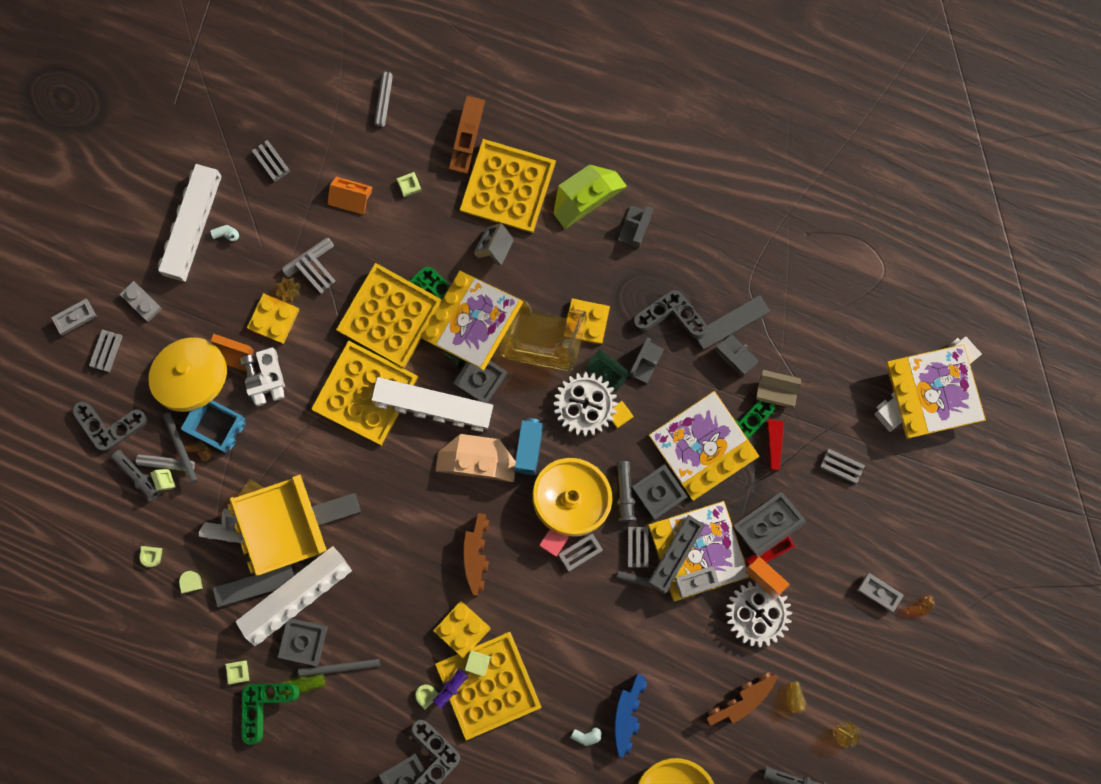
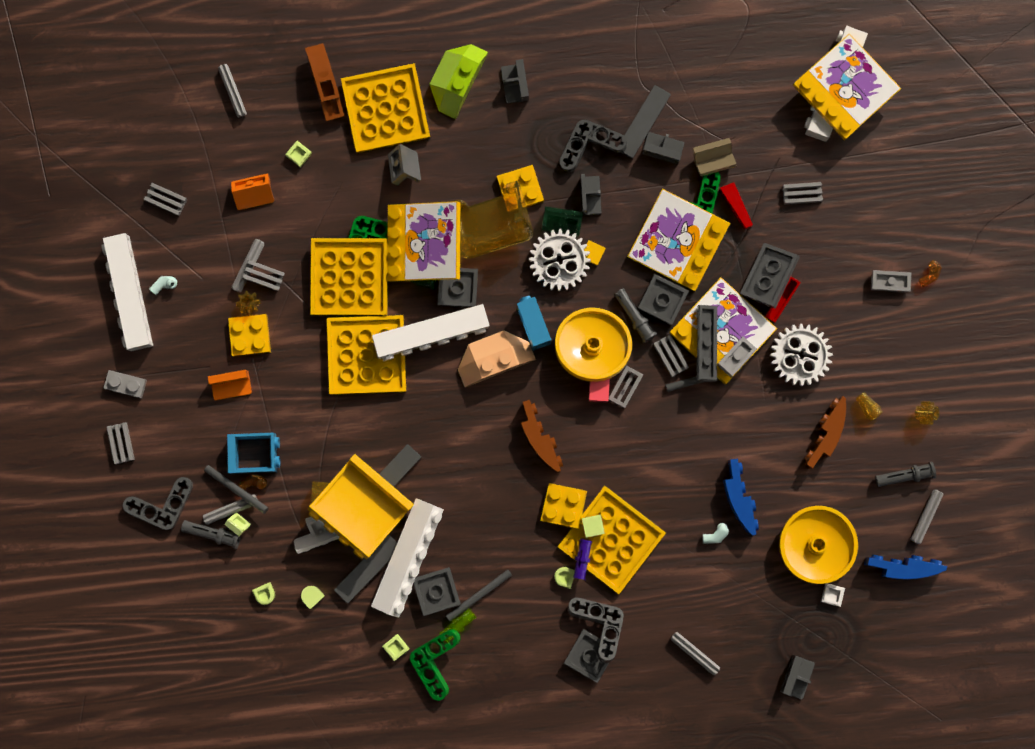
camera: 30 degrees left, 5 degrees up
(74, 317) = (75, 429): light grey plate -> none
(187, 374) = (205, 423): yellow dish -> none
(268, 380) = (276, 391): white hips -> none
(767, 578) = (792, 321): orange panel -> none

